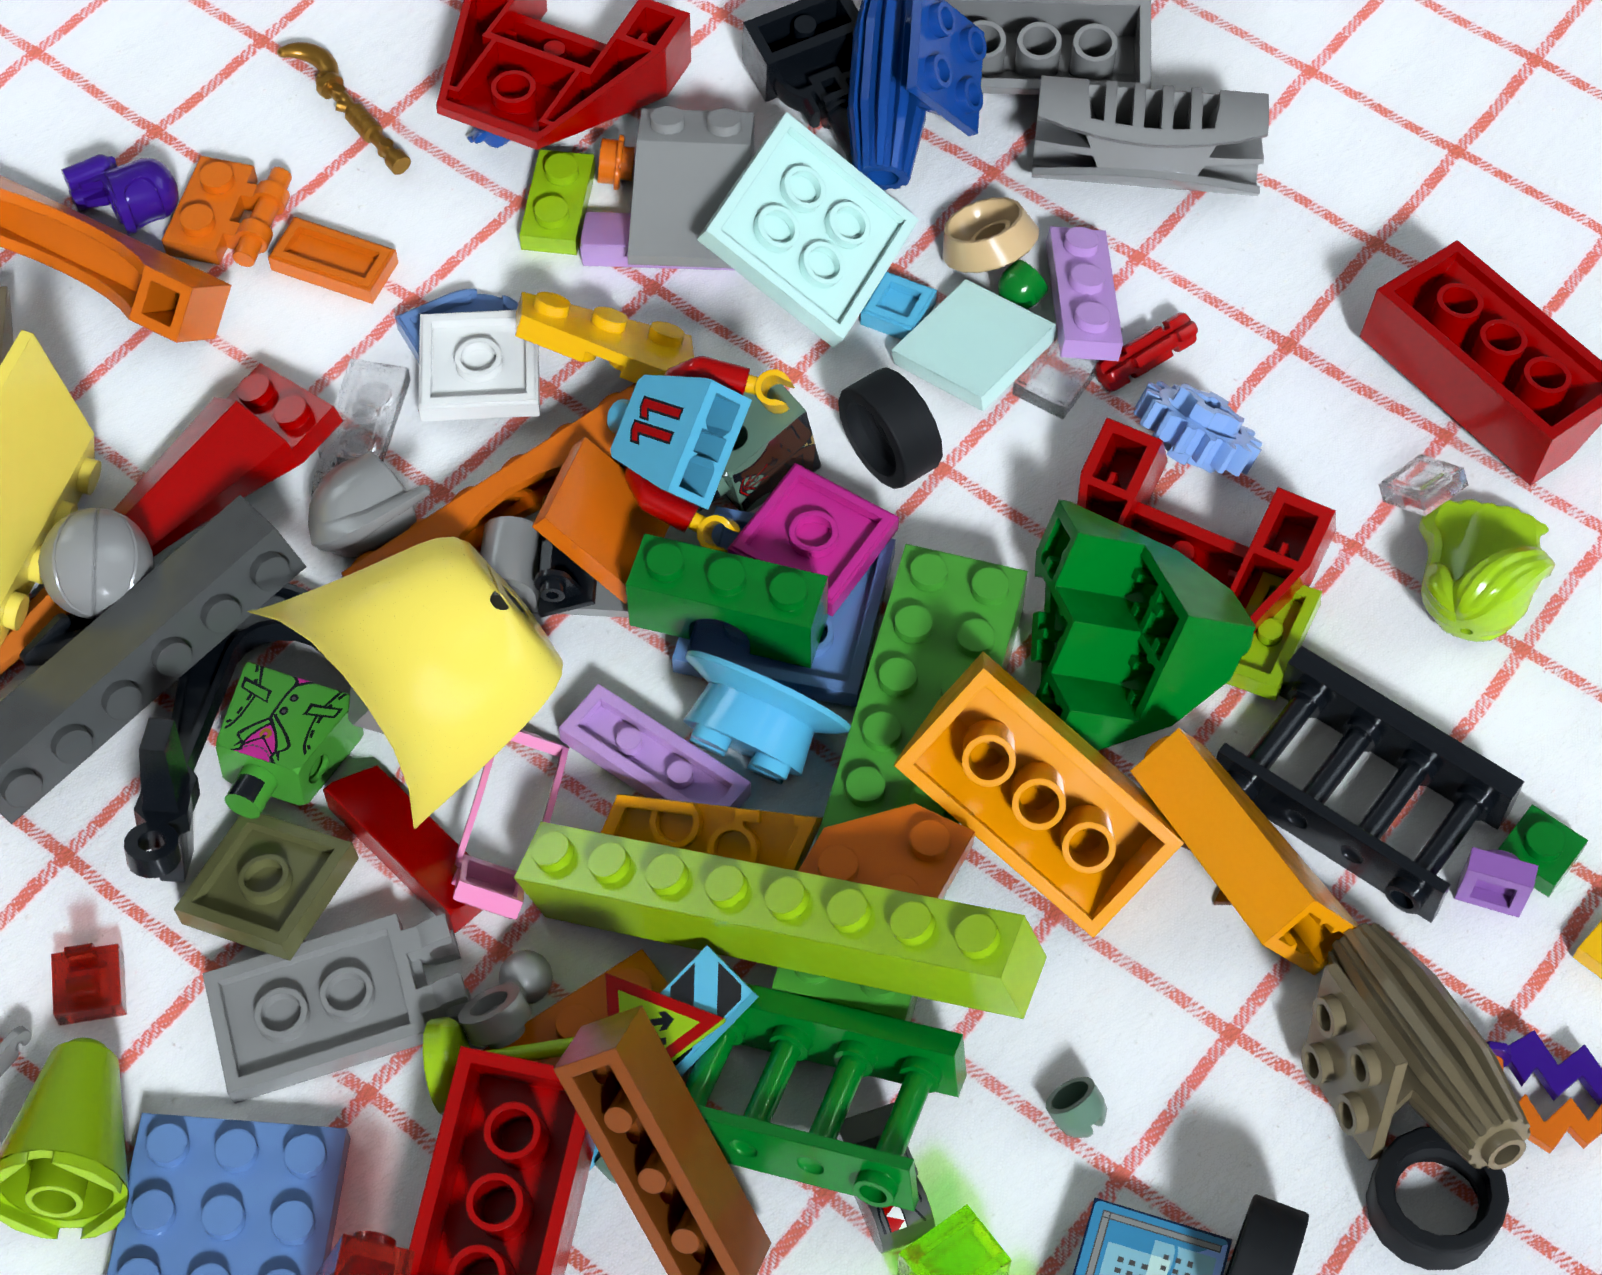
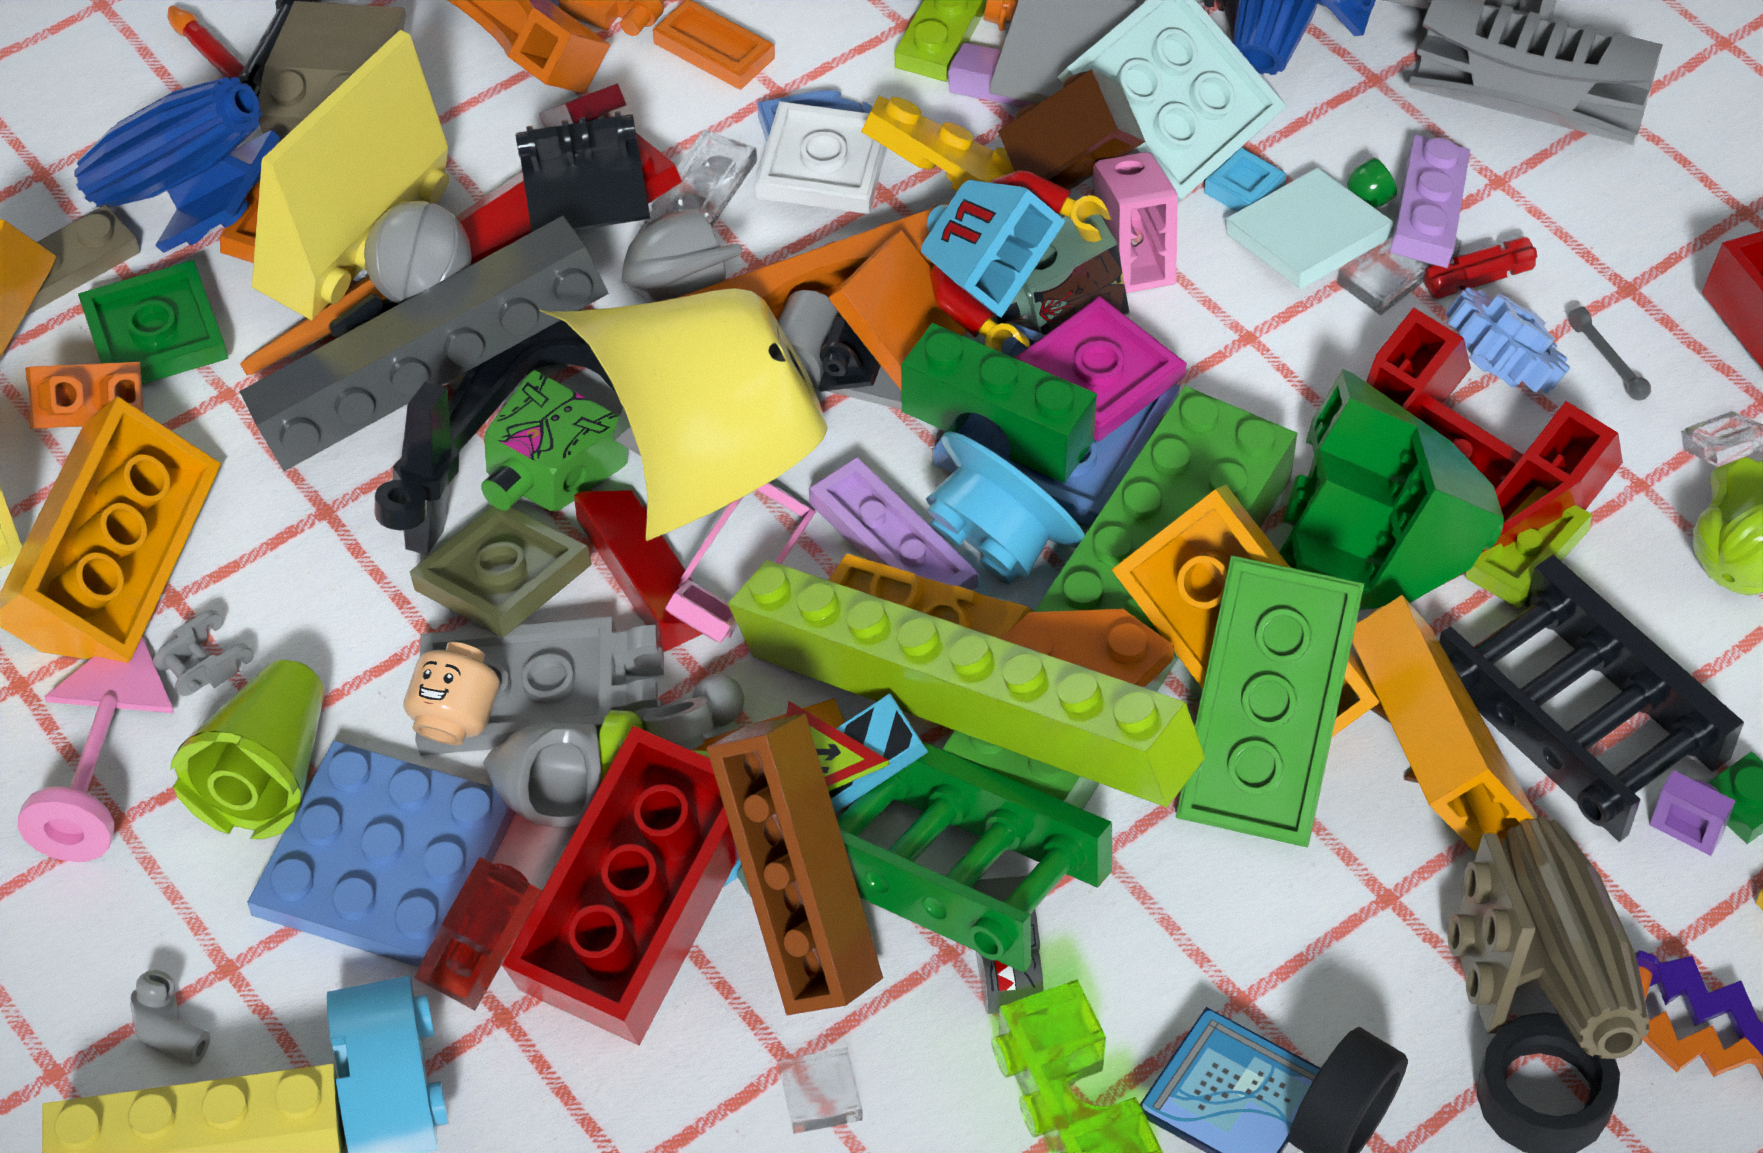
camera: 15 degrees right, 5 degrees down
(88, 983) = (316, 621): clear red tile -> none
(224, 365) = (591, 106): none -> dark red plate
(244, 439) = (583, 173): none -> black hinge
(256, 1040) = (451, 694): none -> light nougat head
(378, 1102) = (547, 772): none -> light grey piece
(726, 297) = (1073, 130): none -> reddish brown brick
(807, 351) = (1143, 202): none -> bright pink torso
(890, 428) = (1201, 283): black tyre -> none
(988, 235) = (1350, 131): tan hat -> none
(1077, 1107) = (1213, 925): sand green hinge -> none
(1083, 858) = (1271, 700): none -> bright green tile
(1255, 388) = (1638, 387): none -> dark grey hinge

